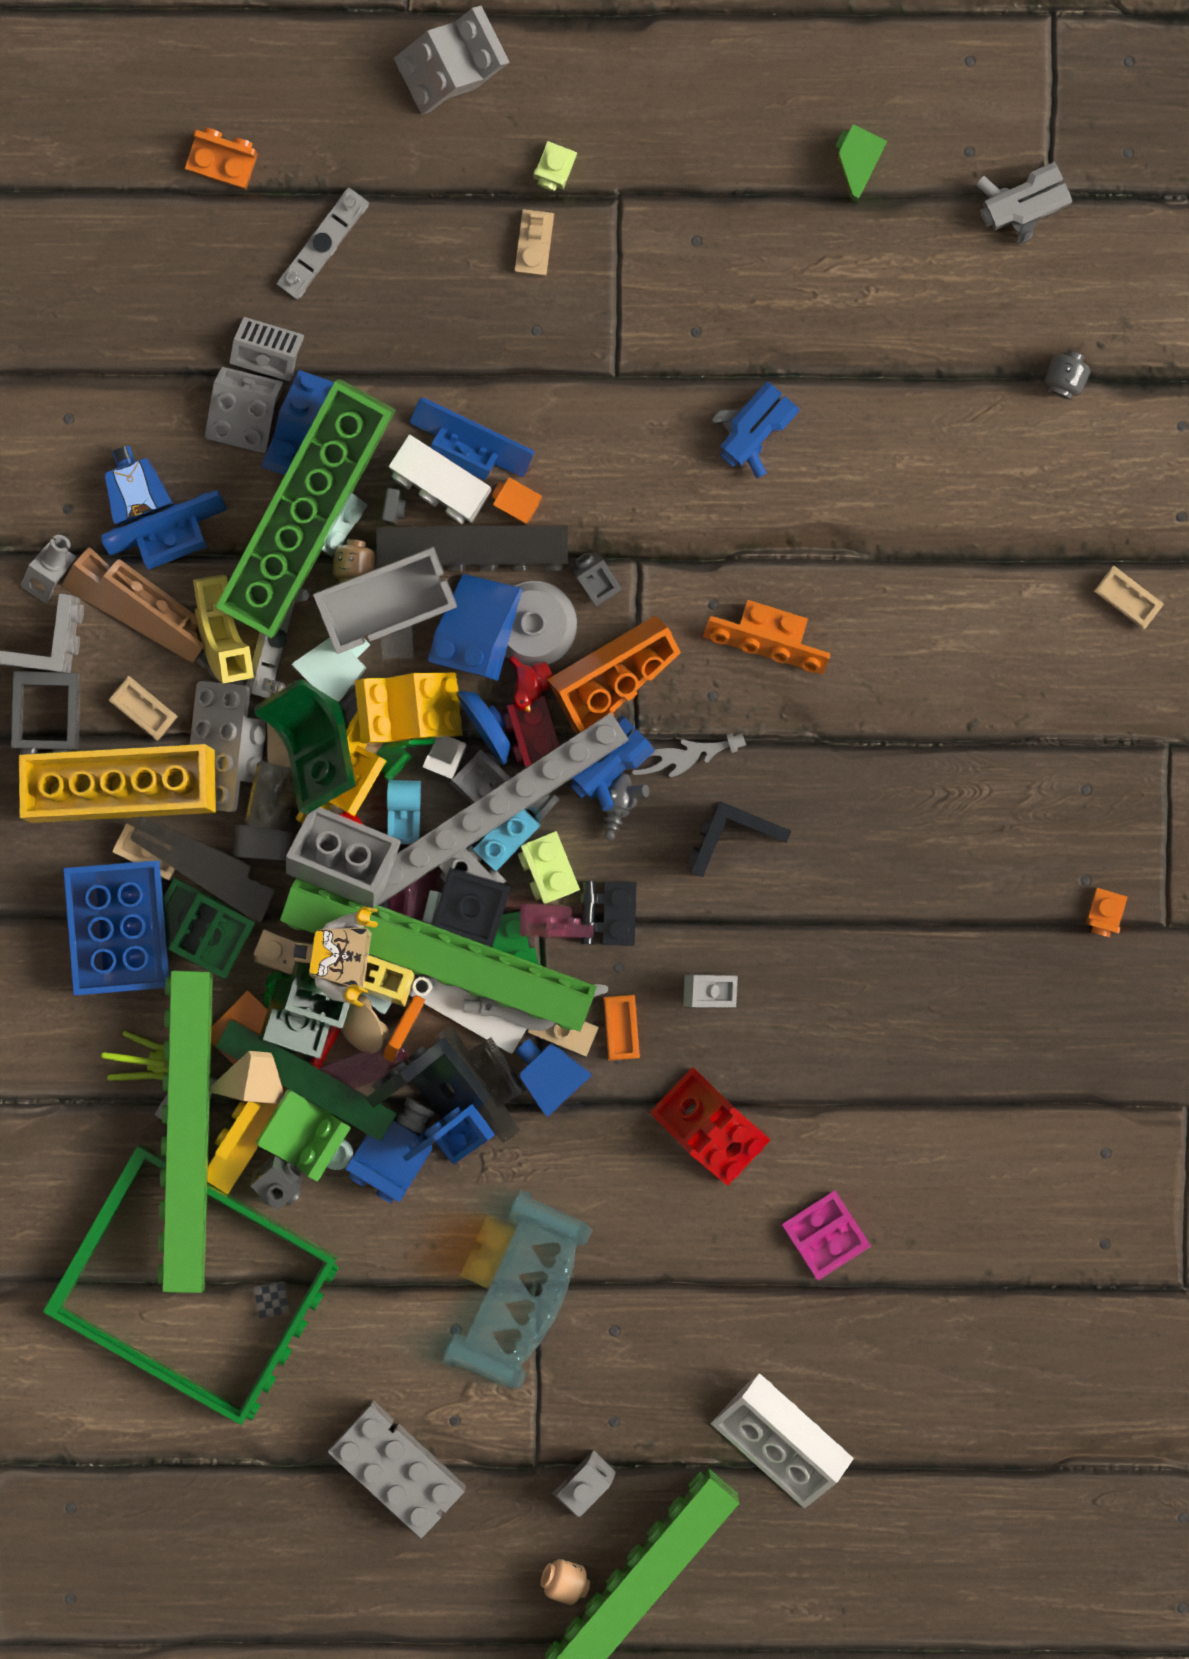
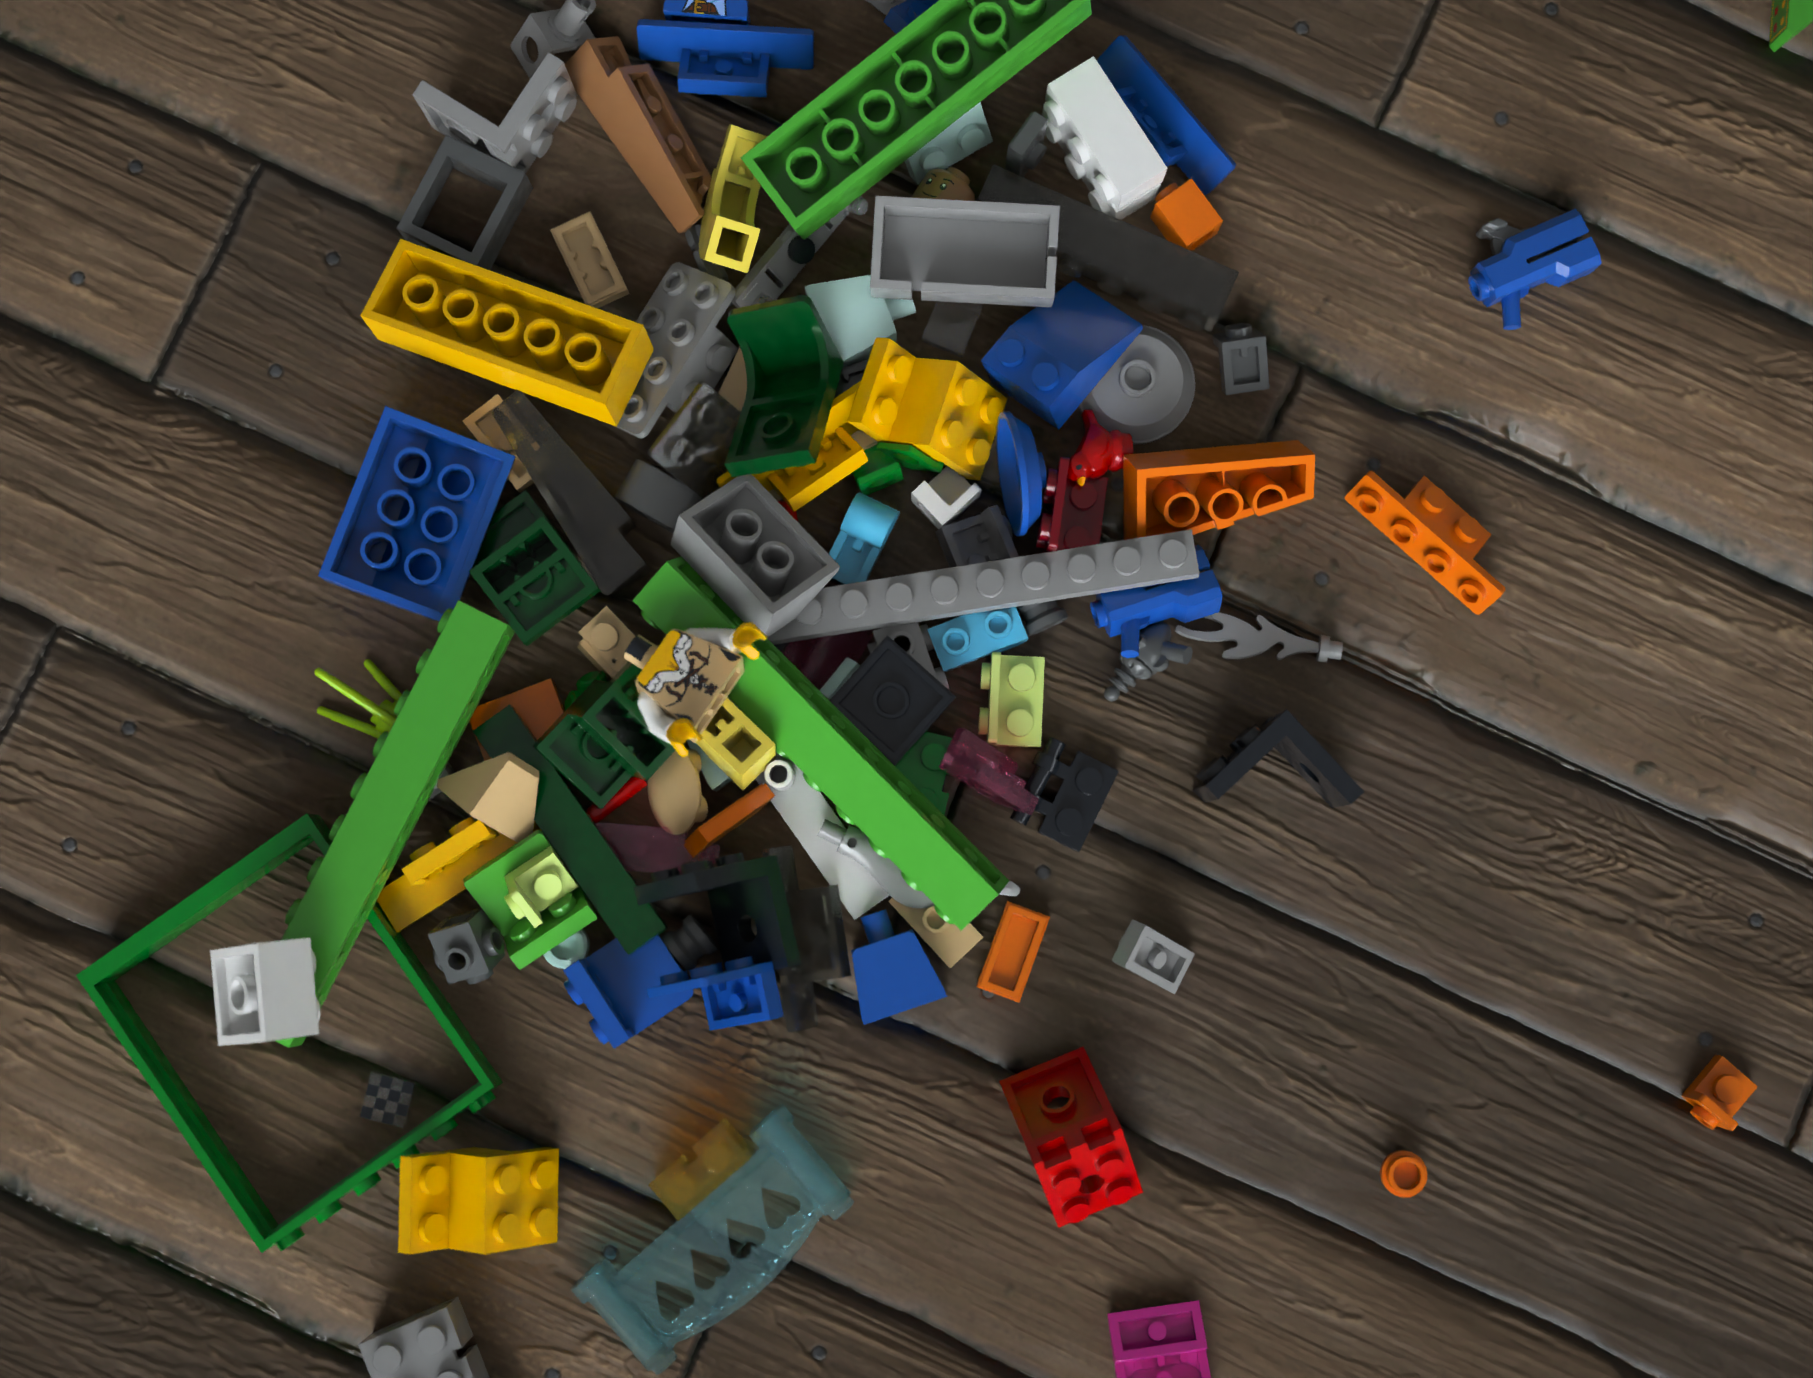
camera: 20 degrees right, 5 degrees down
(171, 1265) = (265, 991): none -> white slope
(304, 1124) = (538, 885): none -> yellowish green bracket
(359, 1333) = (478, 1200): none -> yellow bracket
(929, 1053) = (1403, 1173): none -> orange plate

